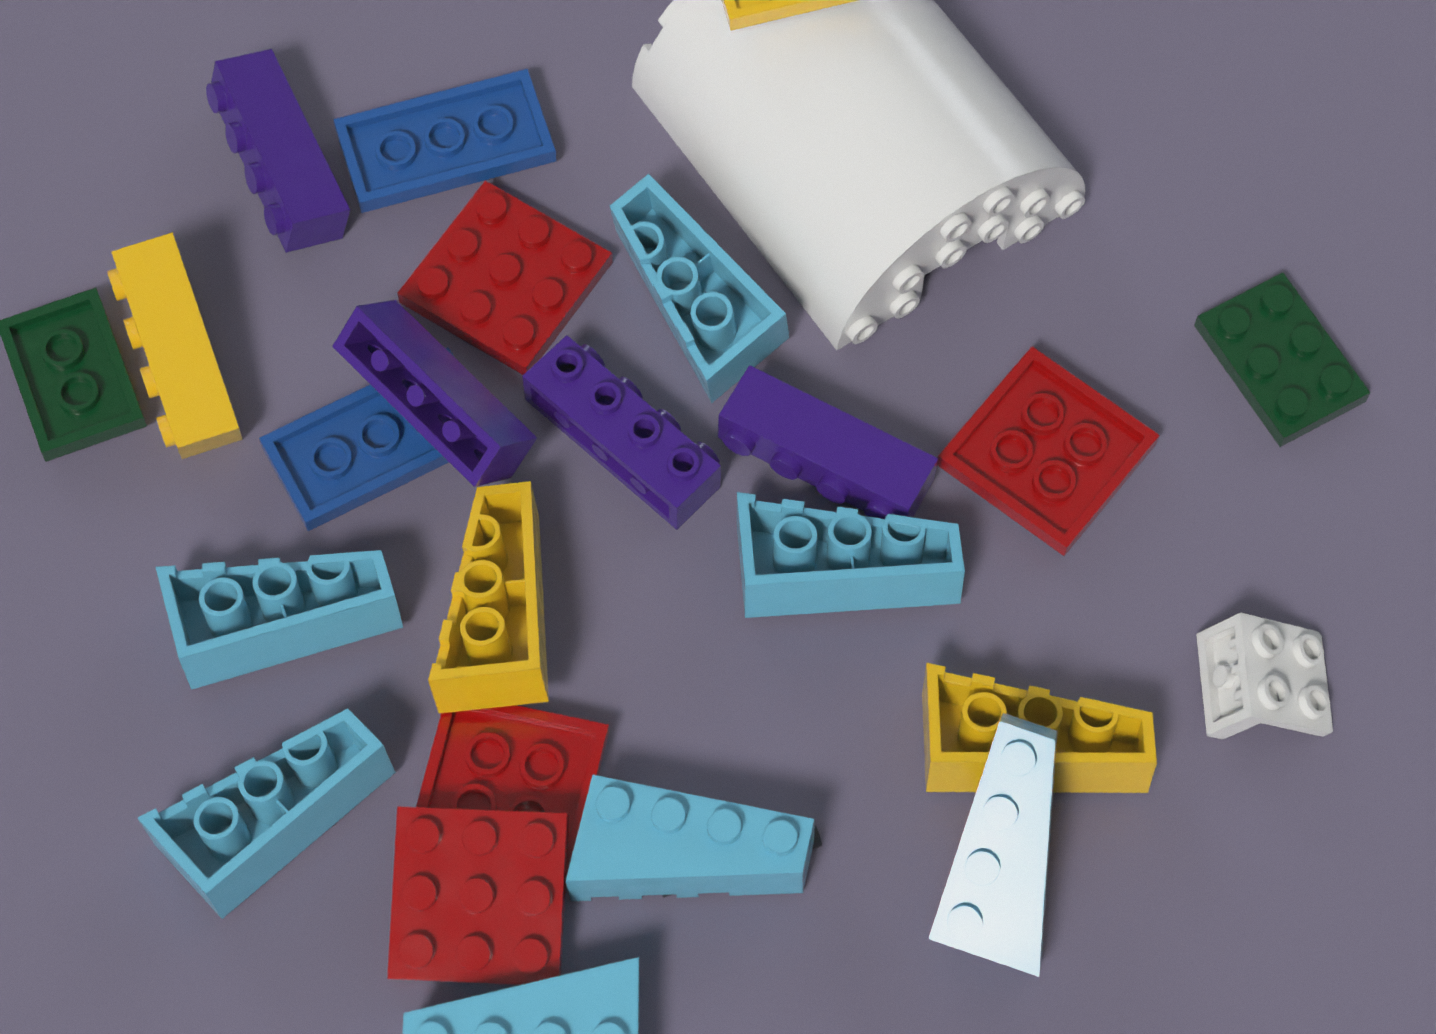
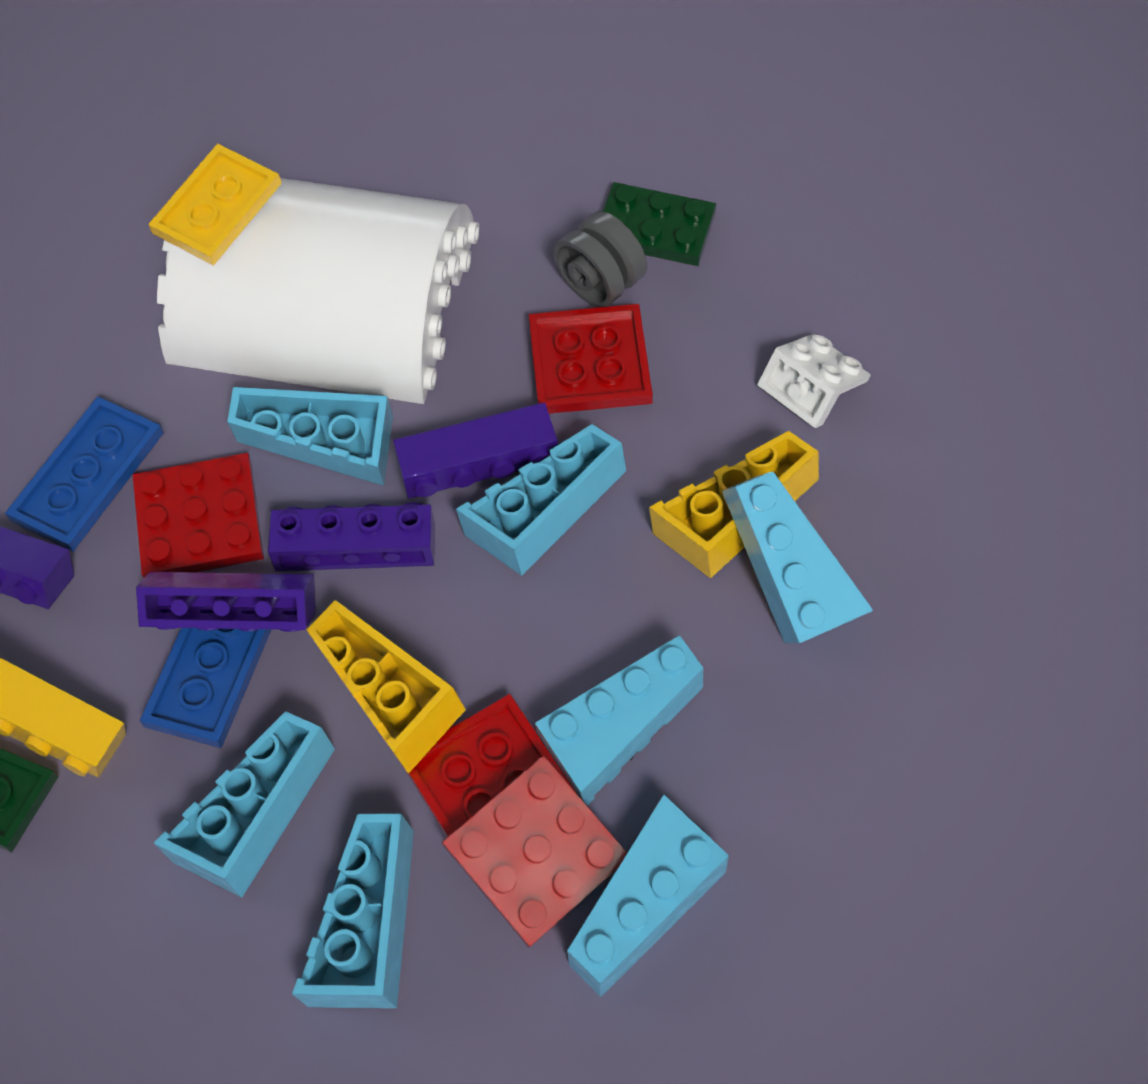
camera: 40 degrees left, 5 degrees down
(1161, 351) = (600, 259): none -> dark grey wheel

